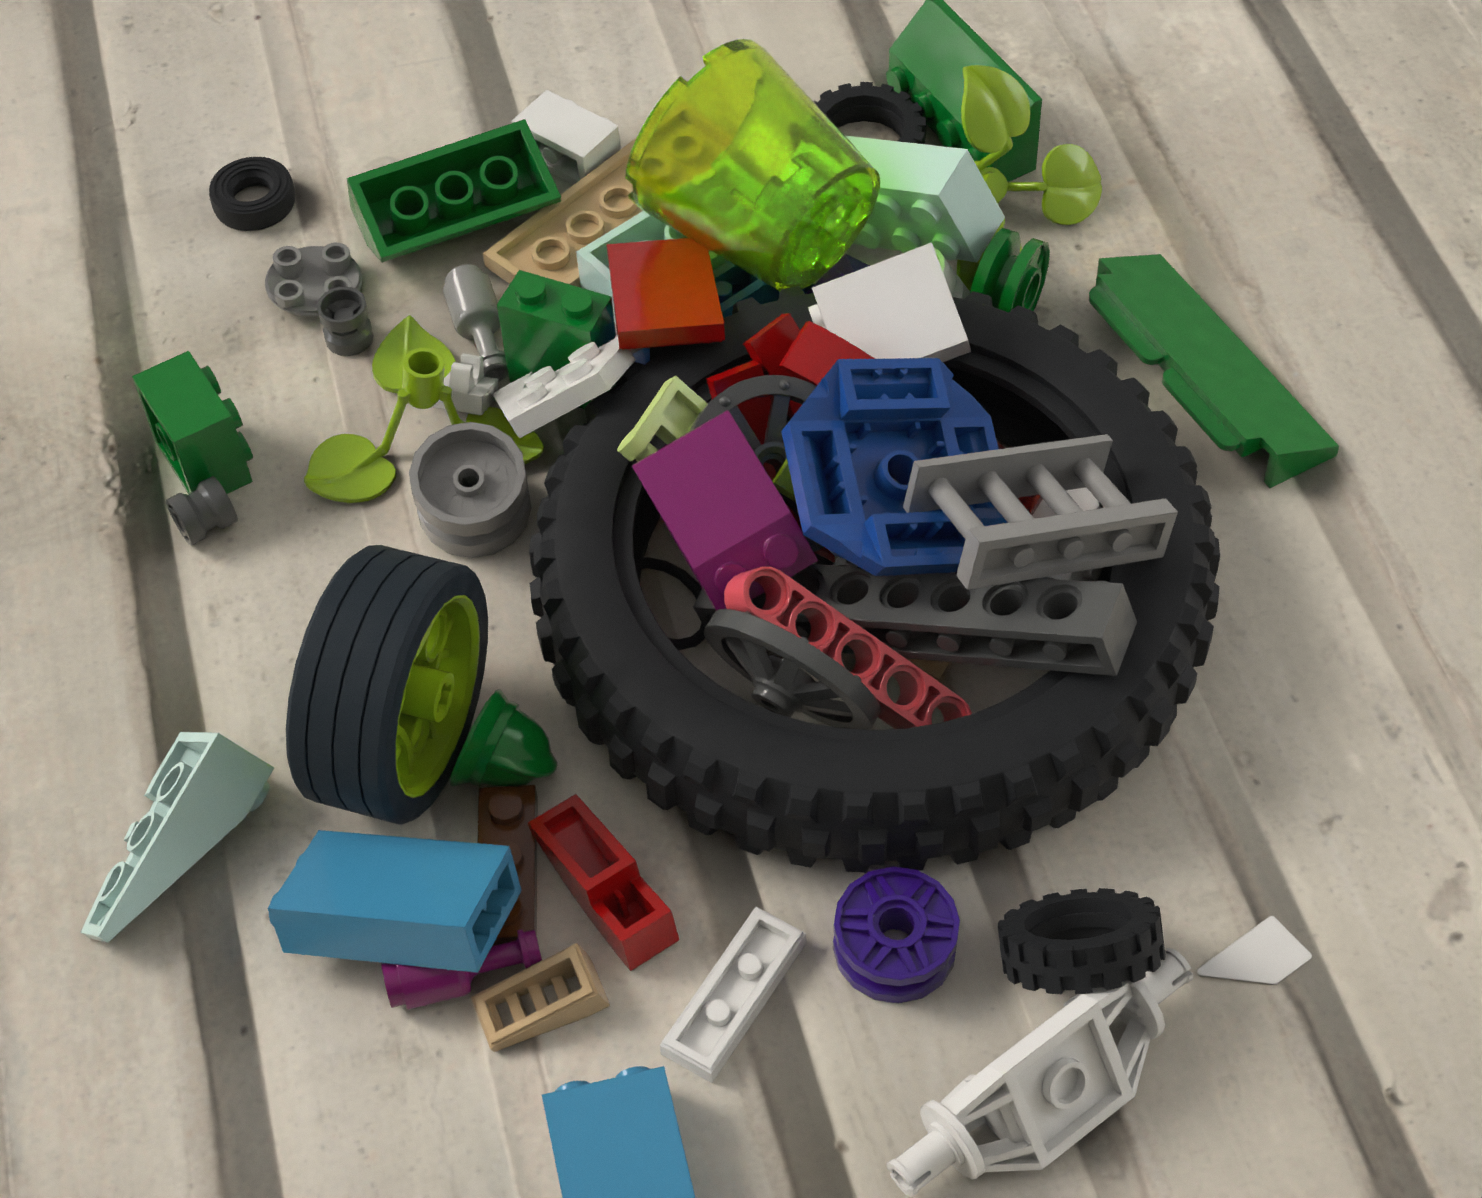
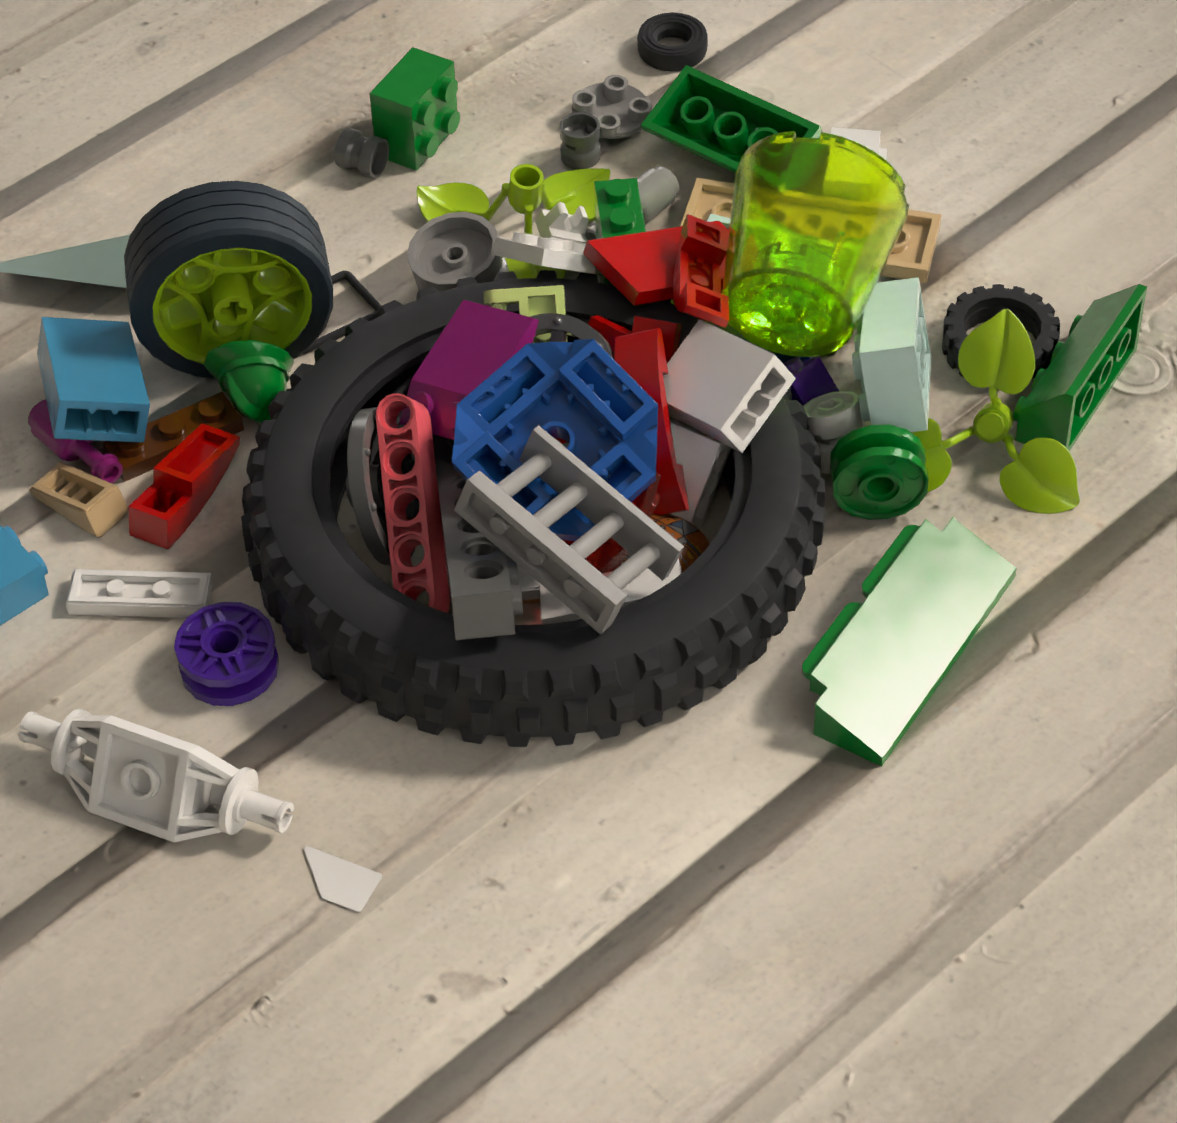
camera: 60 degrees right, 5 degrees down
(685, 260) = (698, 271): none -> red slope
(1081, 941) = (226, 734): black tyre -> none

